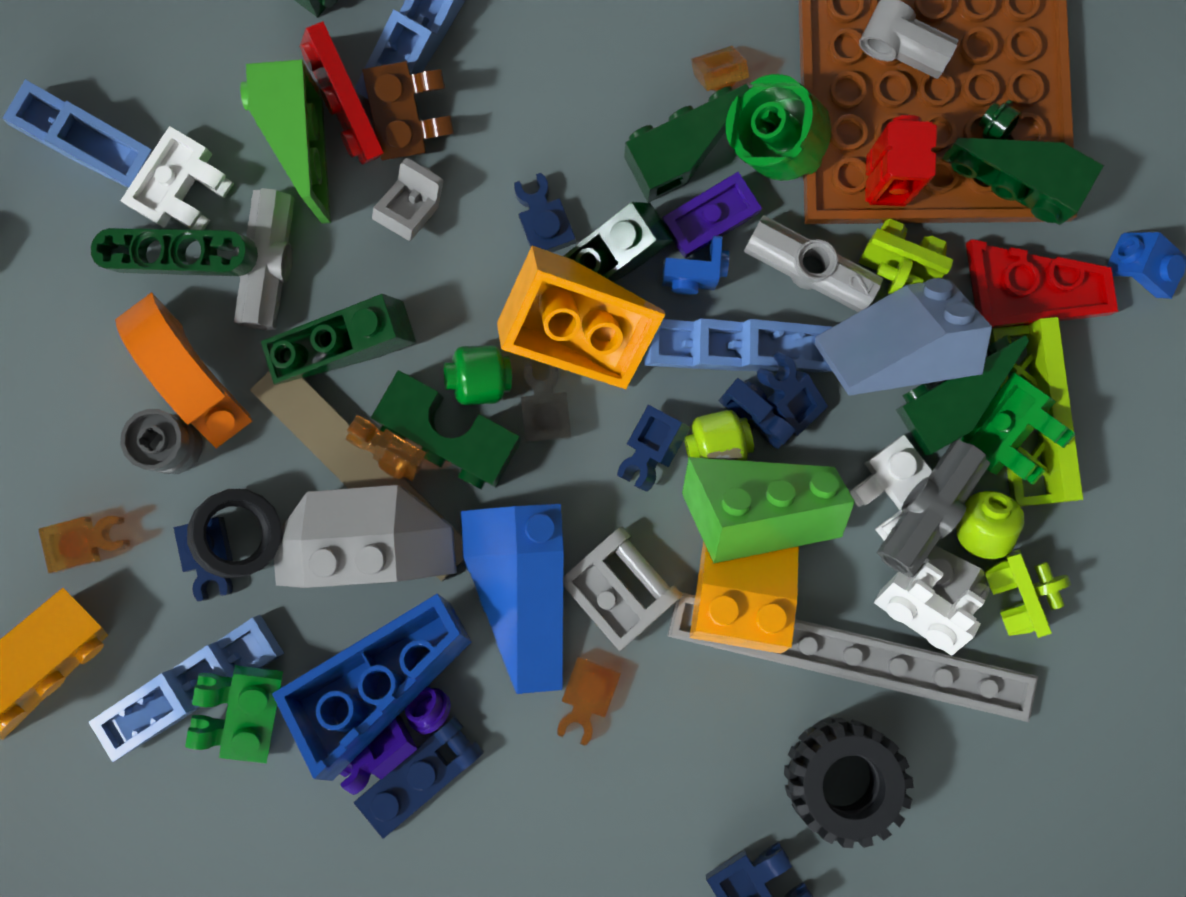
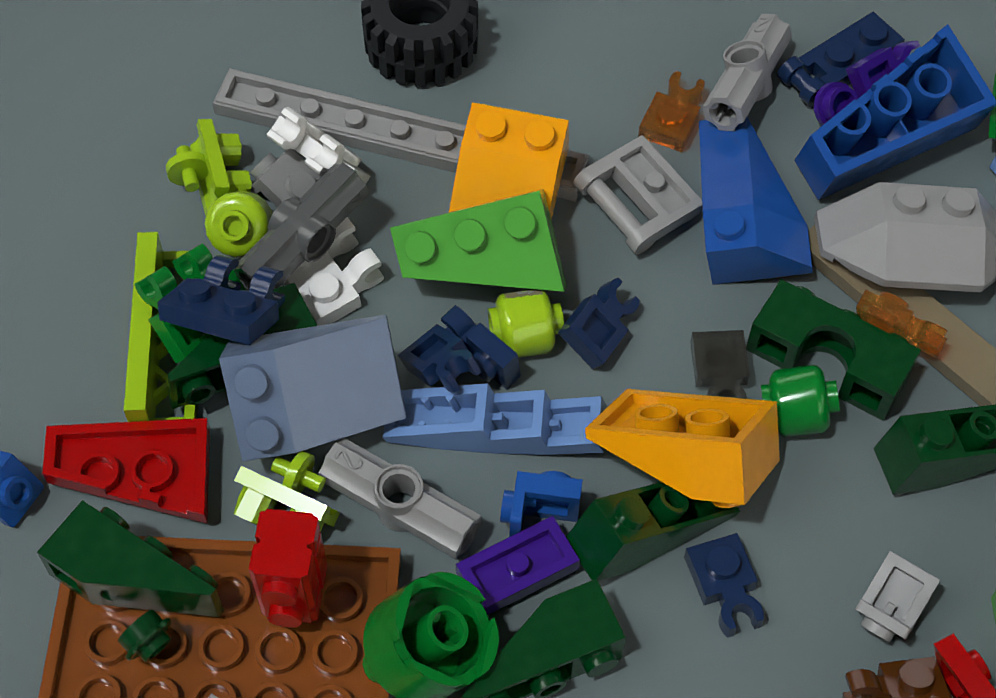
camera: 175 degrees left, 25 degrees down
(506, 765) = (747, 72): none -> light grey piece
(997, 393) = (219, 305): none -> dark blue plate

